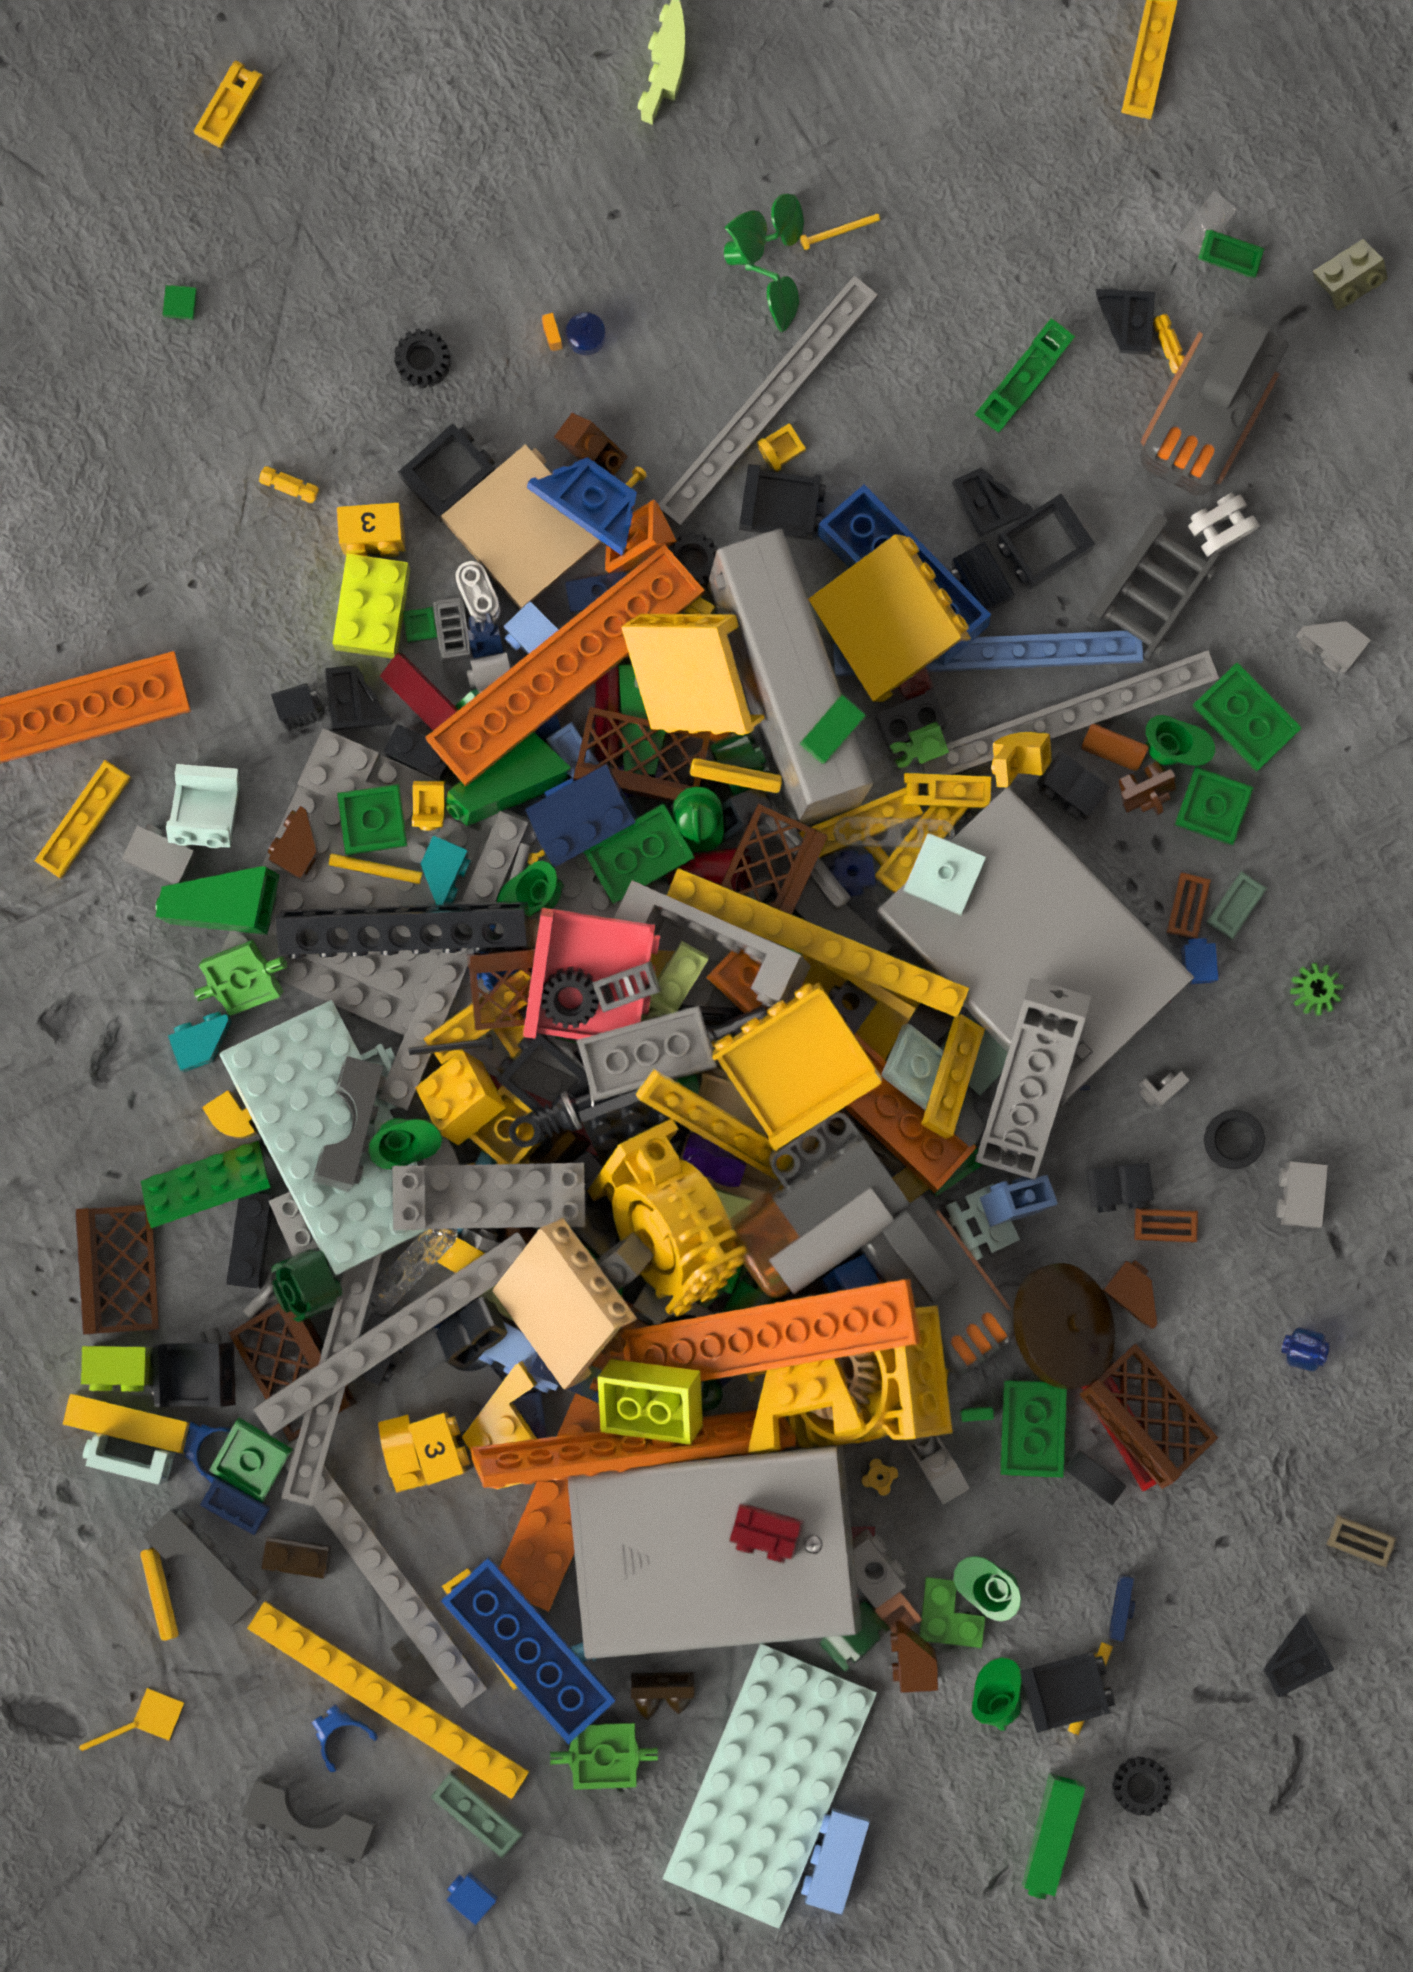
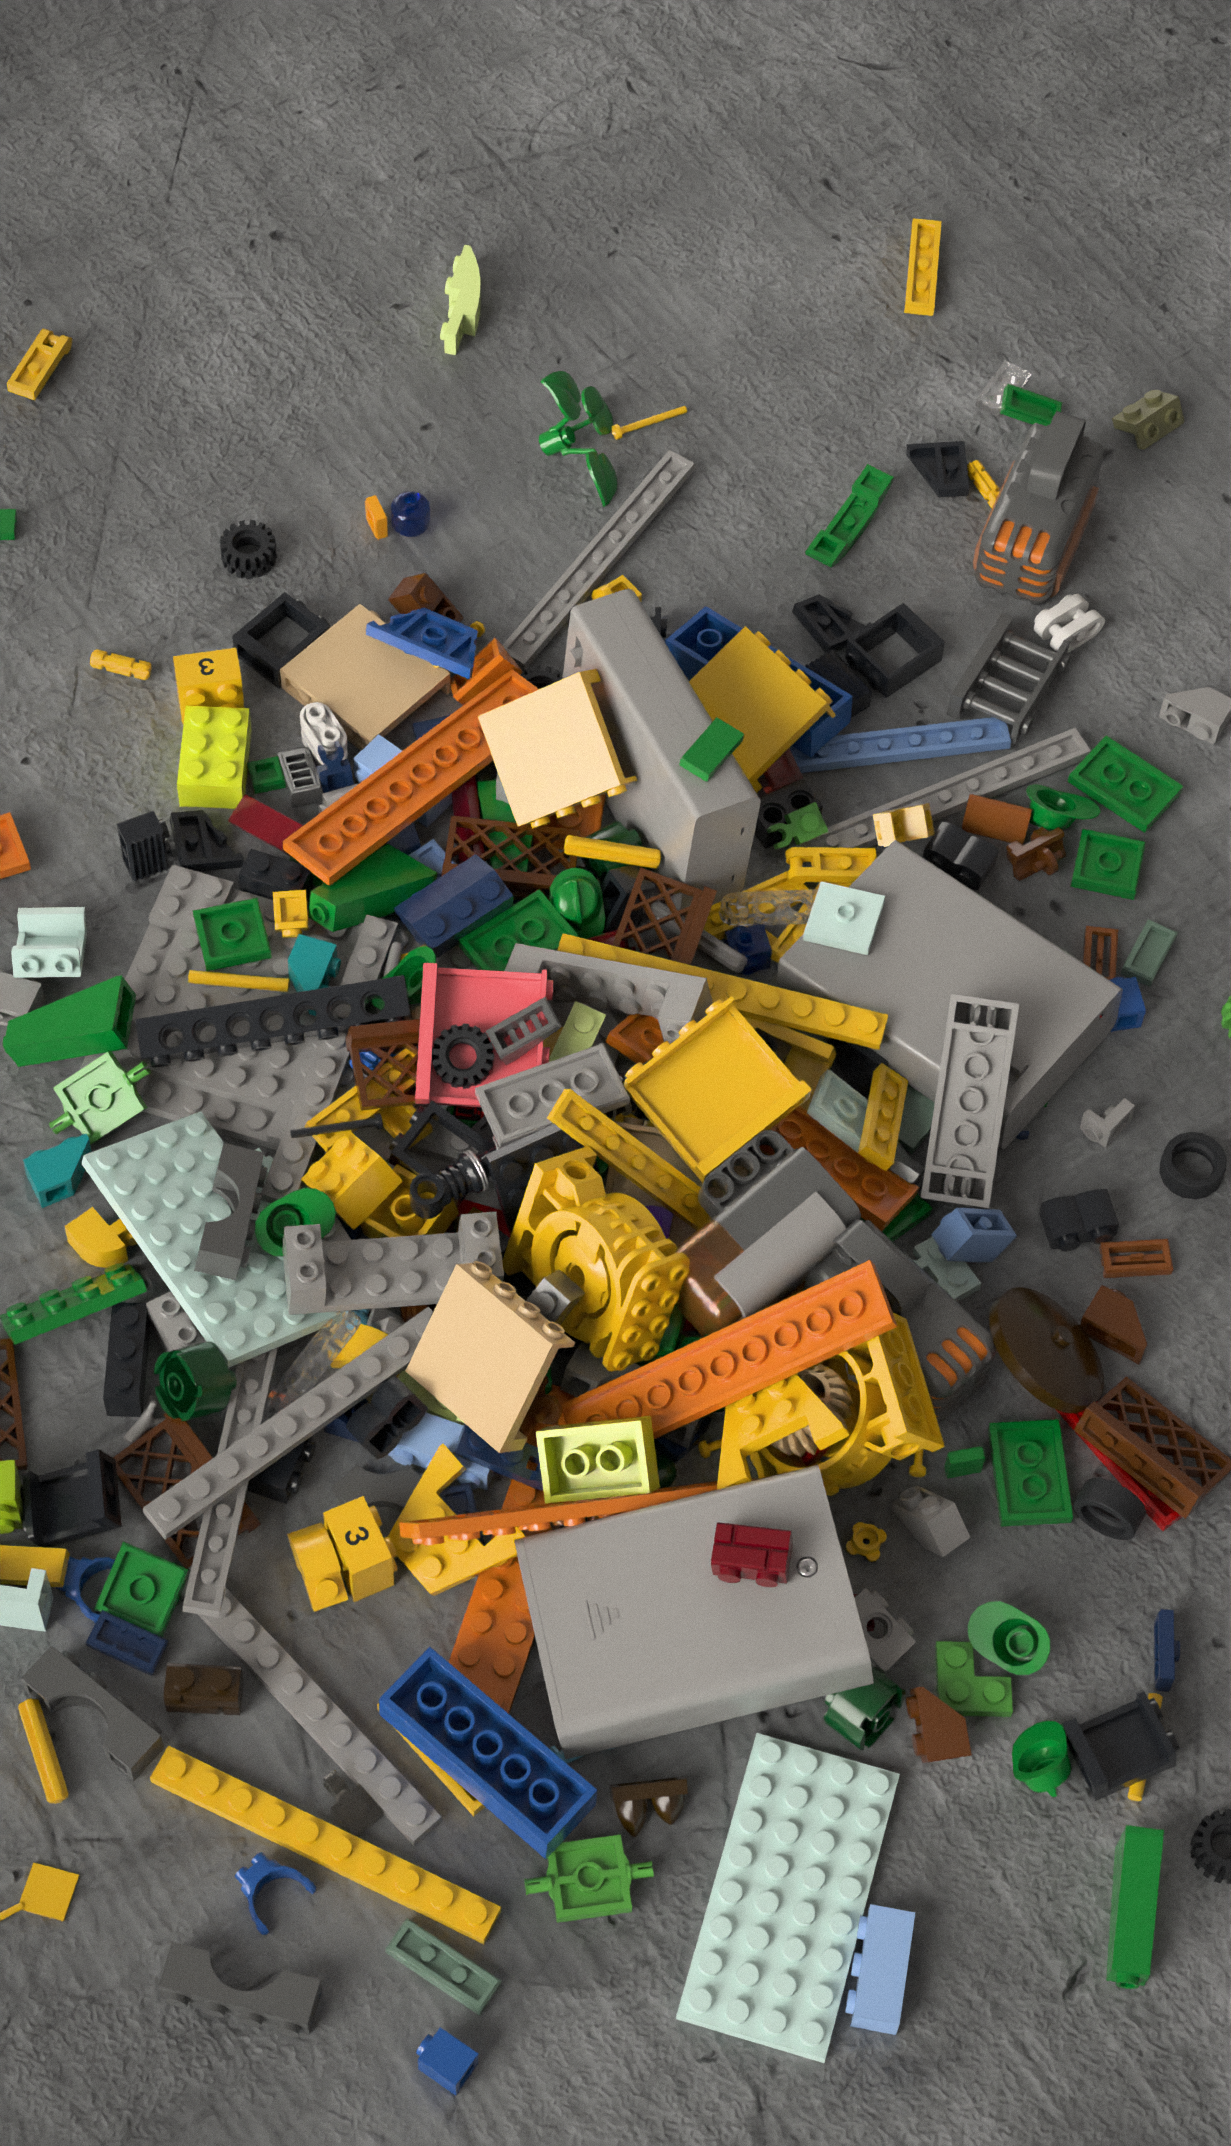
camera: 10 degrees left, 25 degrees down
(297, 847) = (152, 965): reddish brown slope -> none
(897, 1609) = (912, 1673): nougat panel -> none

